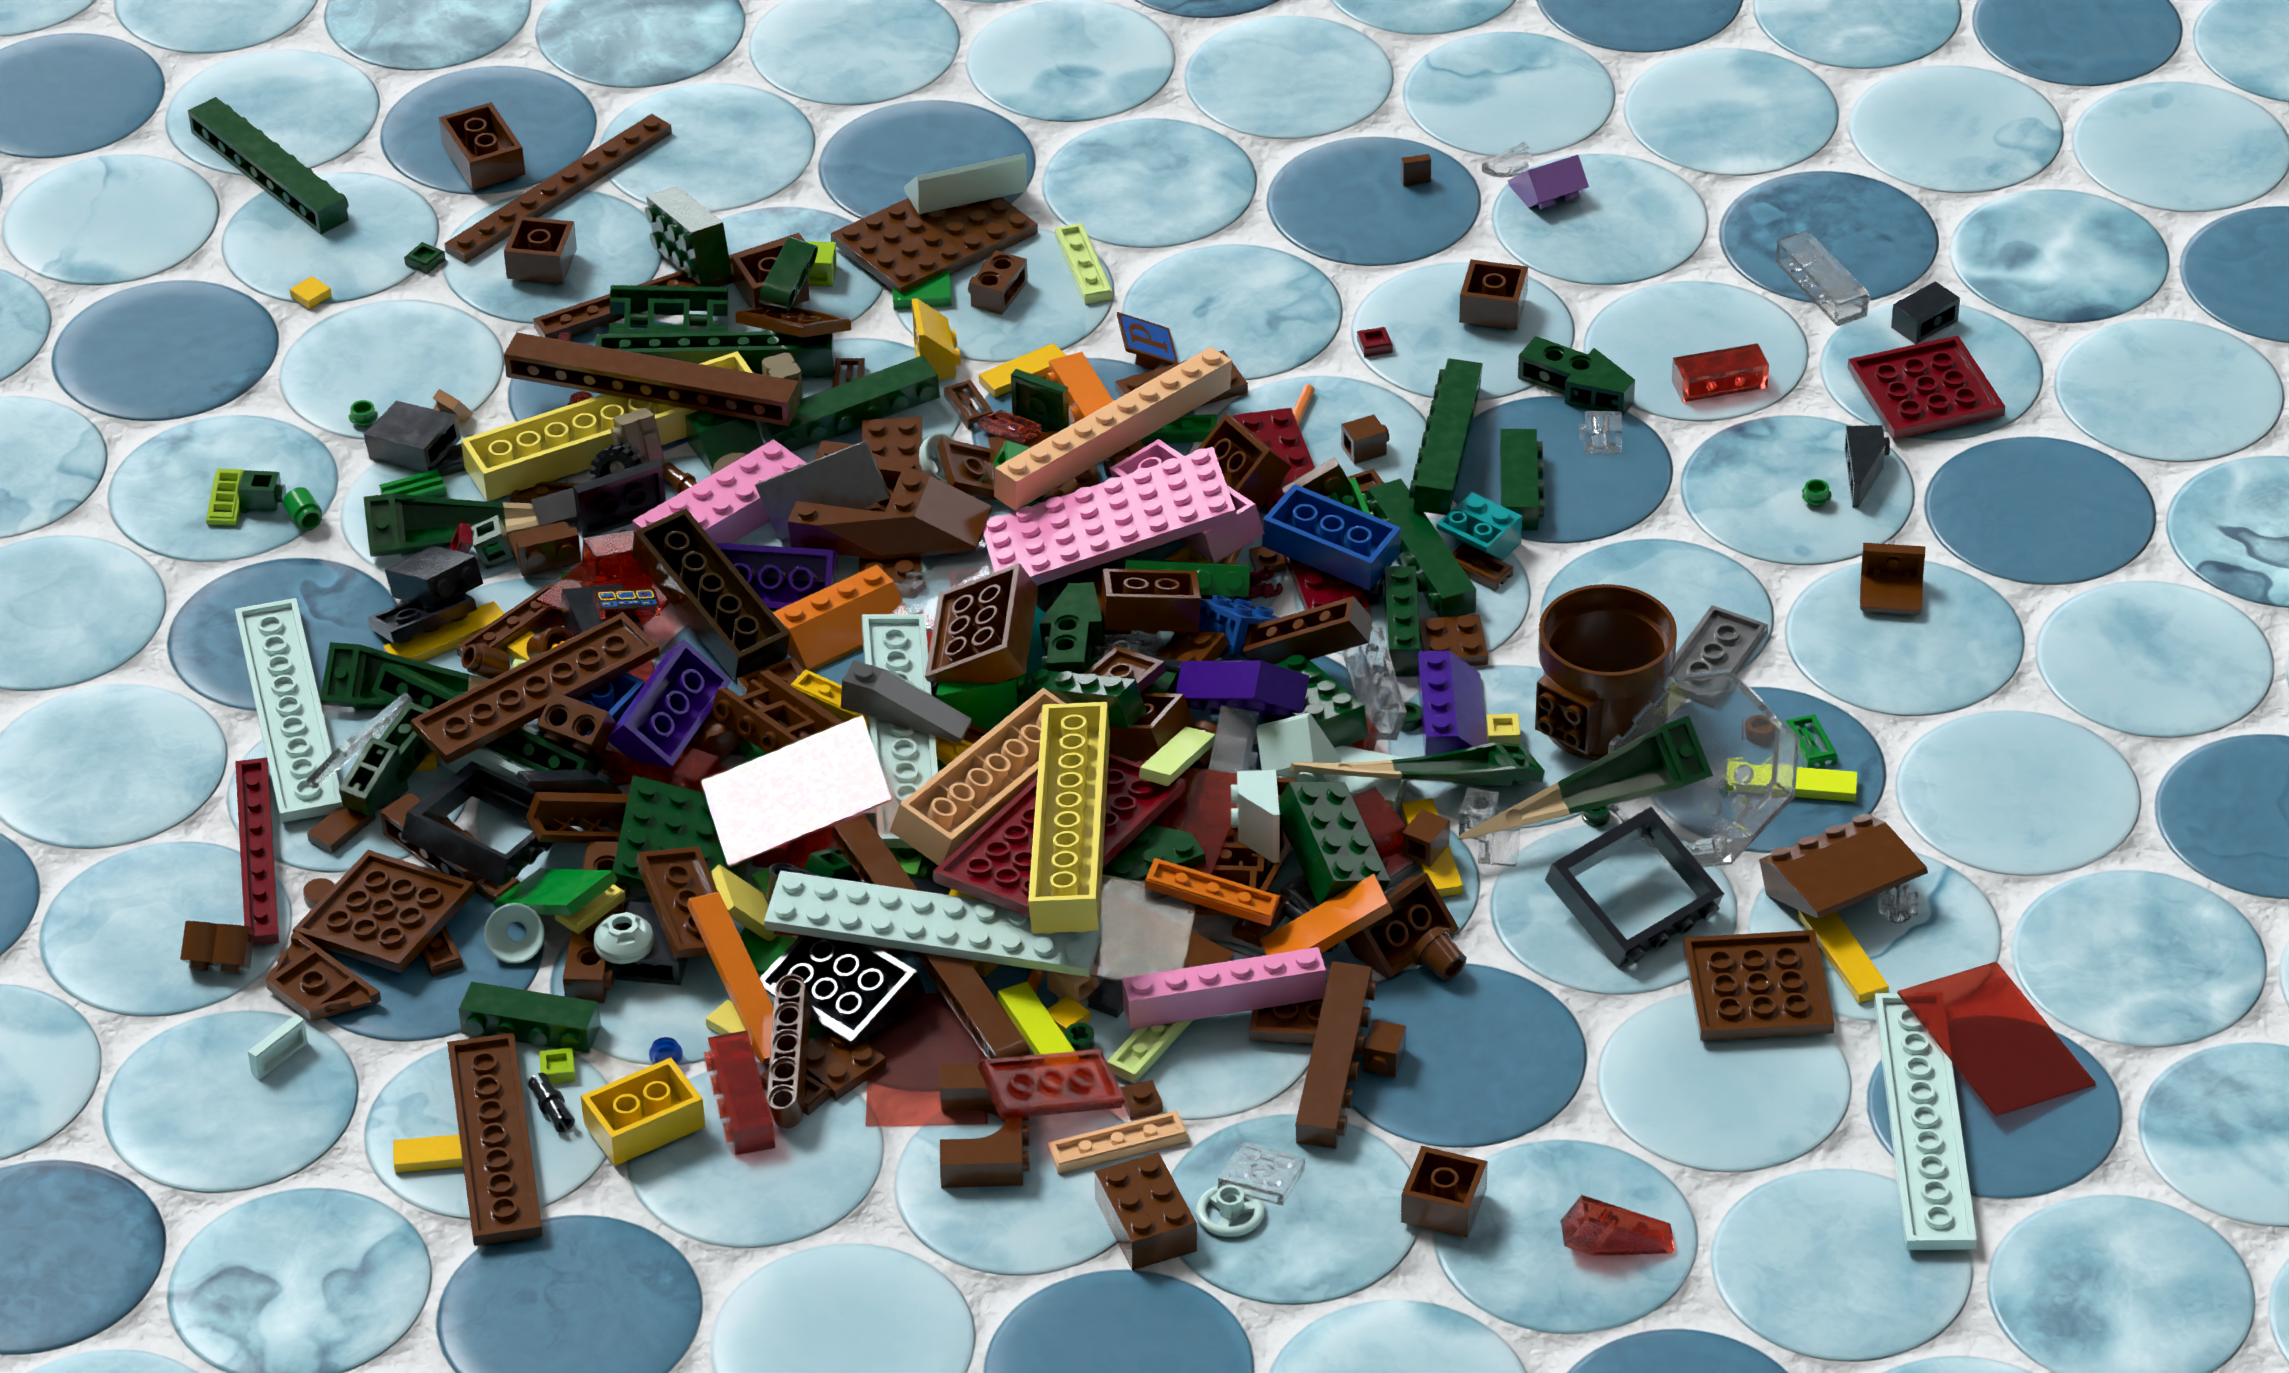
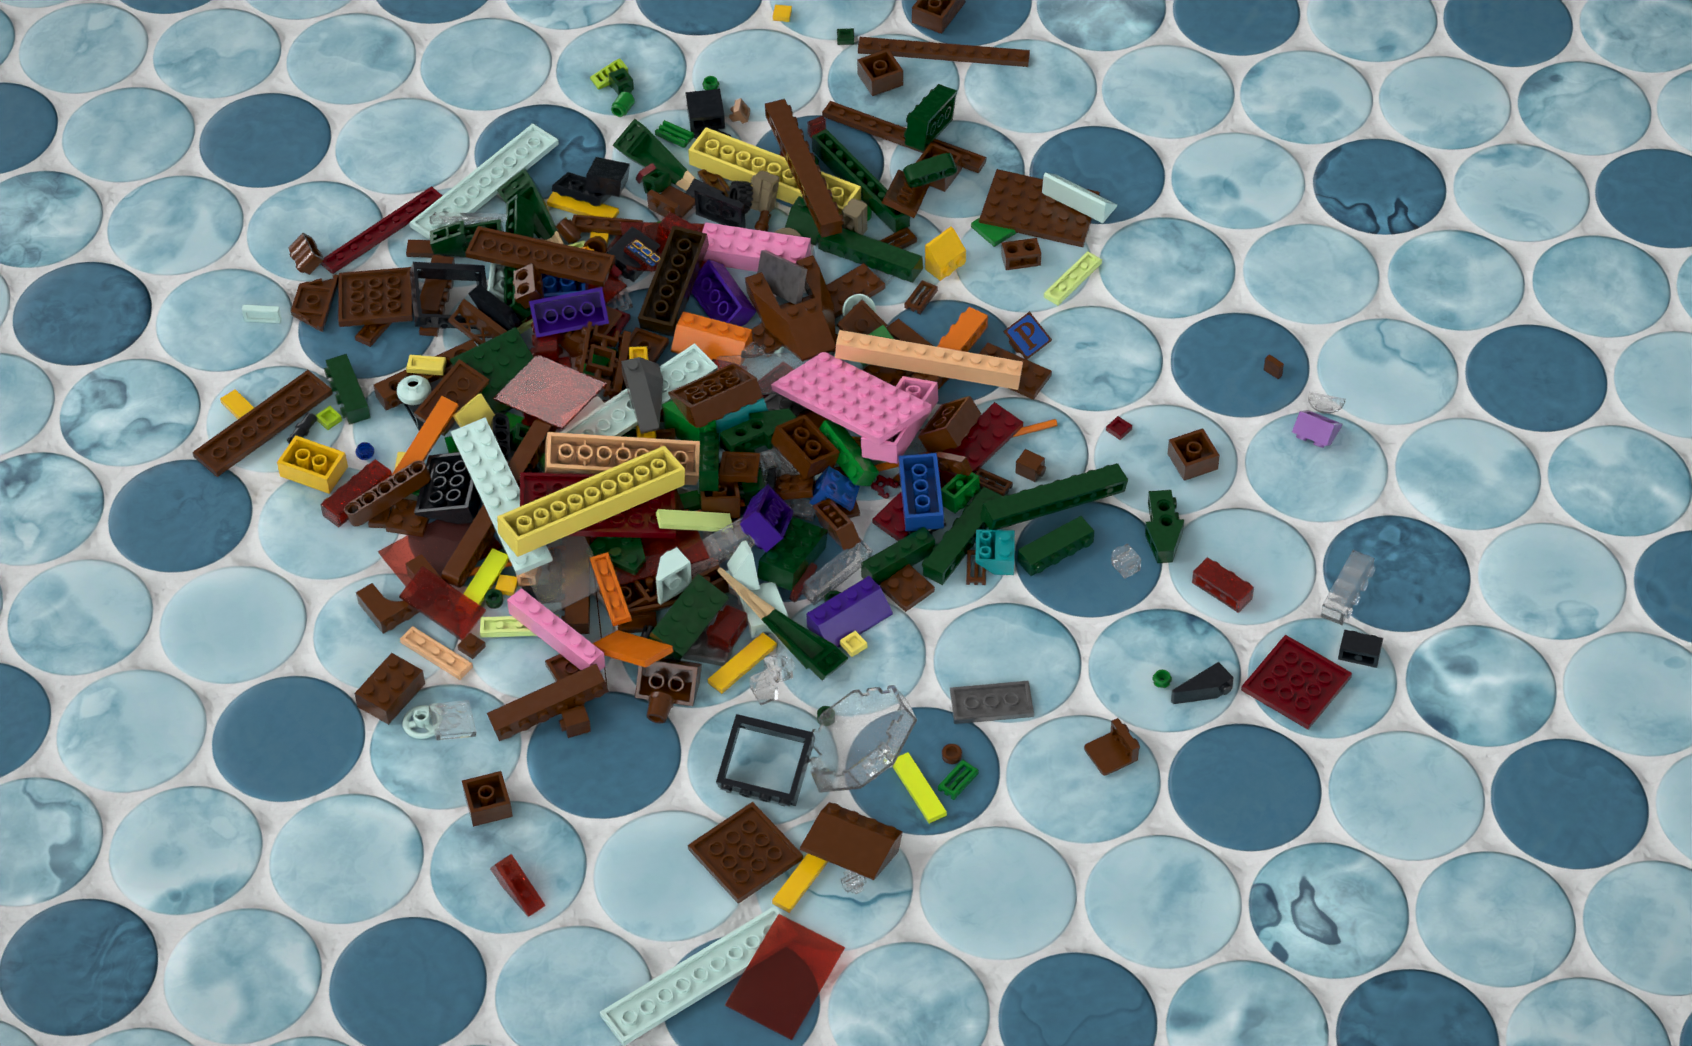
camera: 55 degrees right, 10 degrees up
(316, 890) = (374, 265): reddish brown tile -> none
(502, 945) = (390, 350): light aqua piece -> none
(558, 890) = (425, 347): green tile -> none
(667, 301) = (880, 138): dark green fence -> none
(825, 264) = (971, 178): lime brick -> none
(998, 379) = (961, 301): yellow tile -> none
(1010, 426) = (912, 321): clear red tile -> none
(1040, 401) = (931, 320): dark green tile -> none
(1184, 429) = (979, 392): green tile -> none
(1425, 838) = (736, 654): reddish brown brick -> none
(1601, 662) = (904, 631): reddish brown cylinder -> none
(1646, 767) = (842, 714): dark green plate -> none

